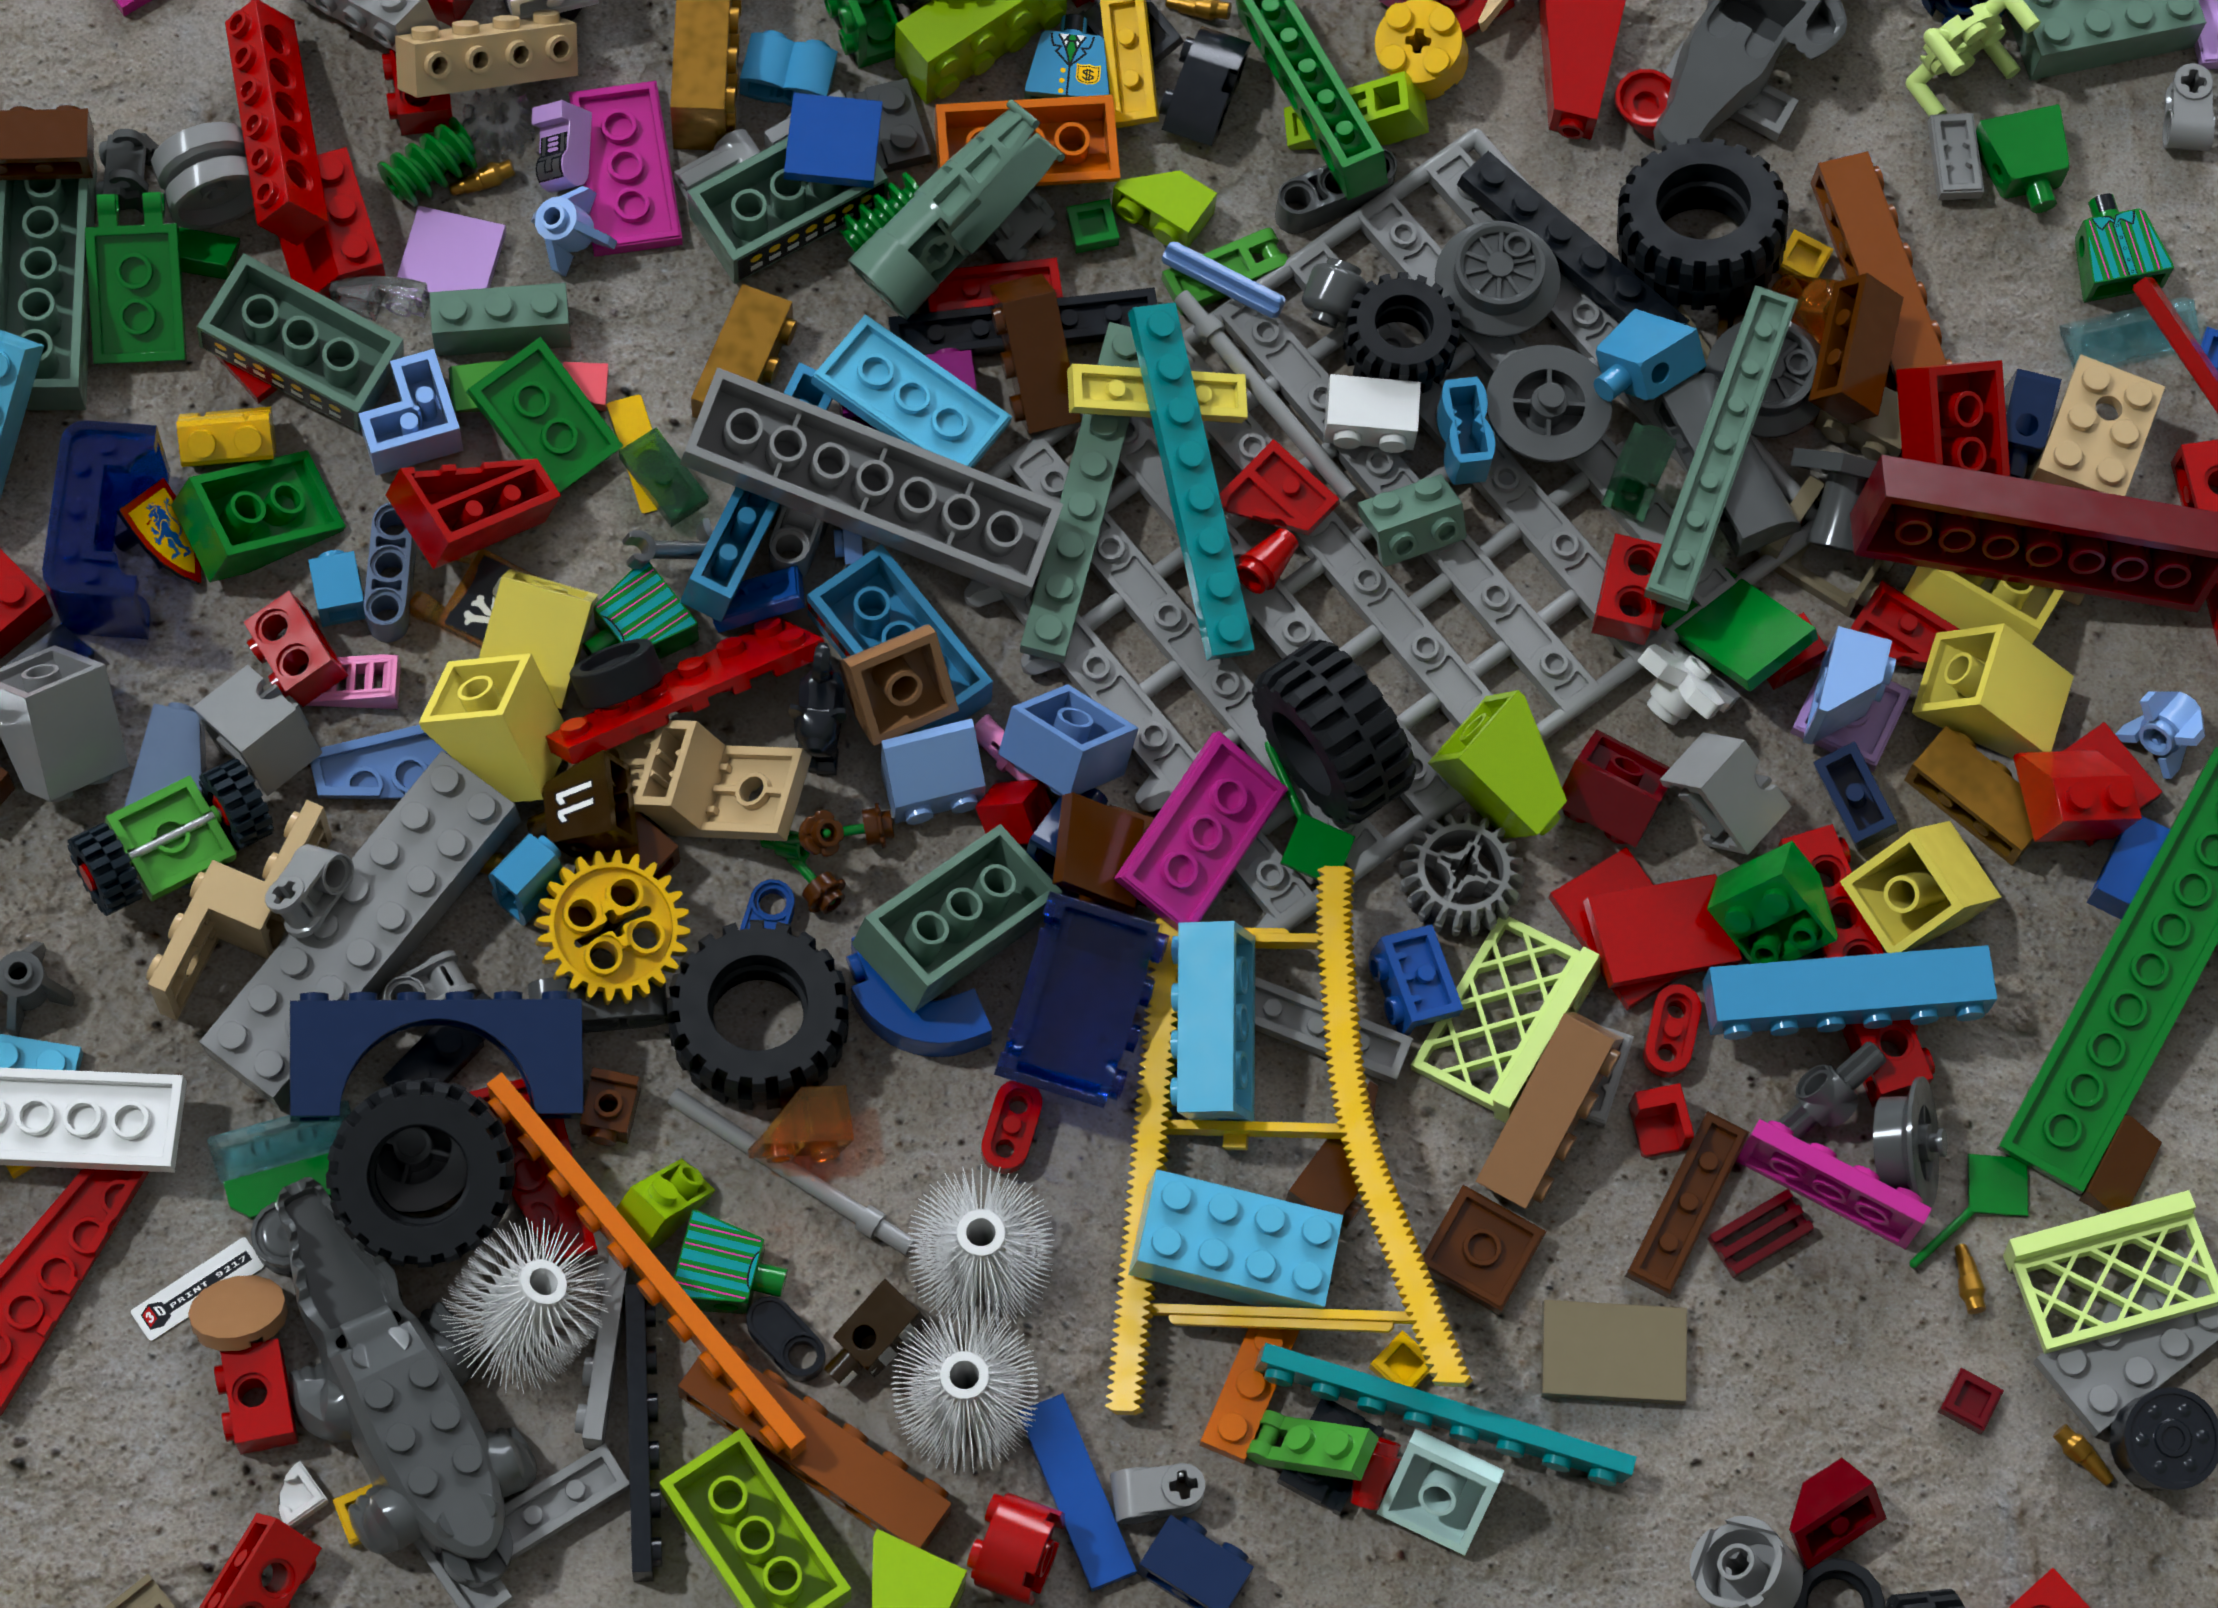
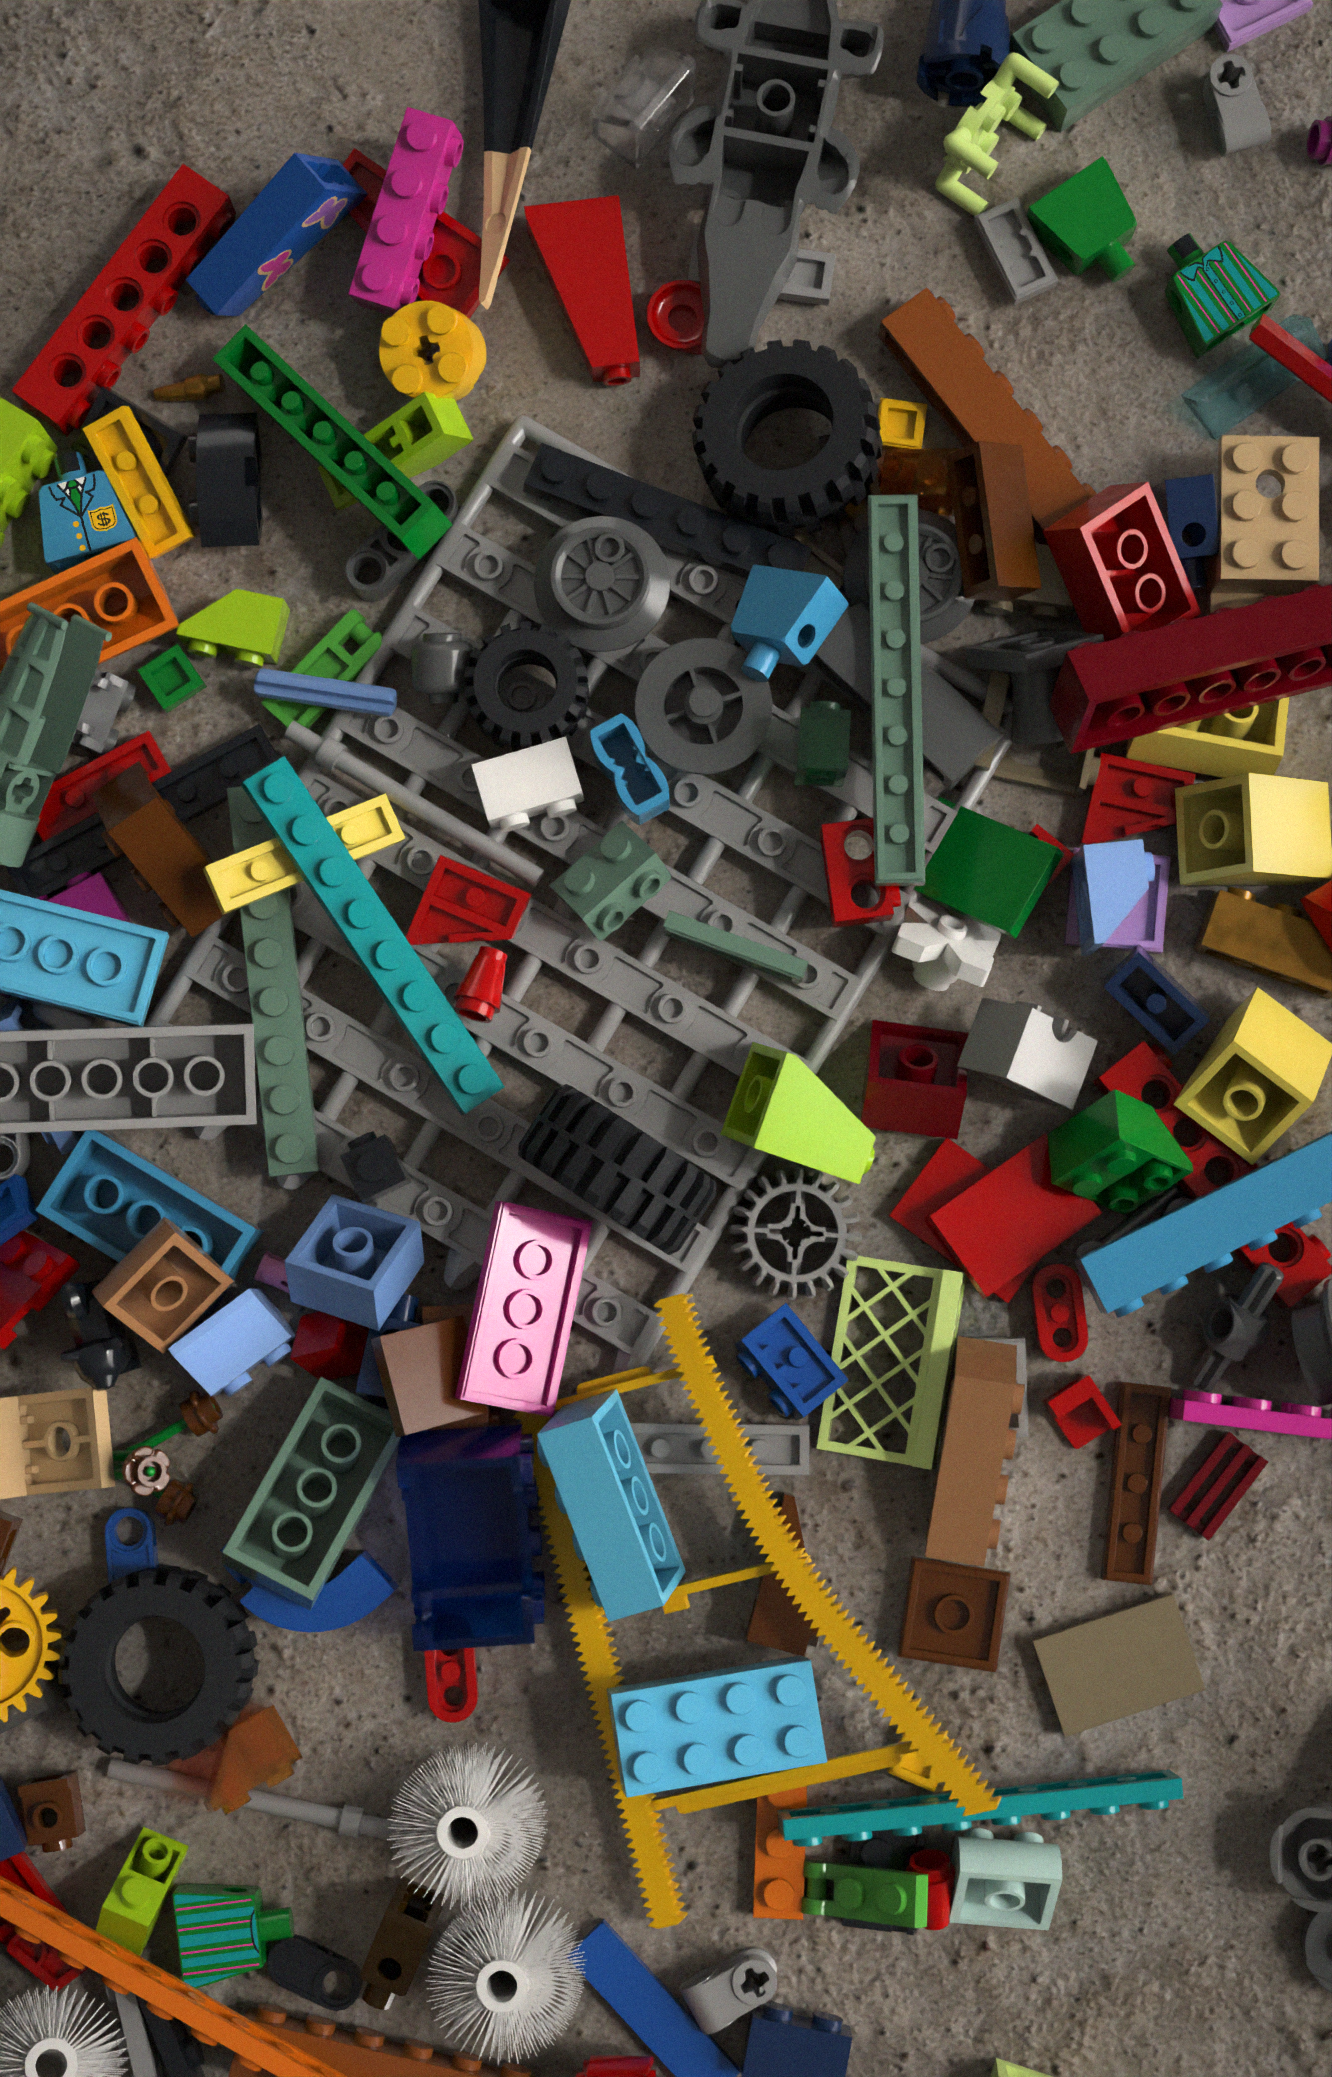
camera: 10 degrees left, 15 degrees up
(1117, 670) = (374, 1166): none -> black brick
(1312, 841) = (640, 1269): green piece -> none
(1501, 610) = (734, 947): none -> sand green tile

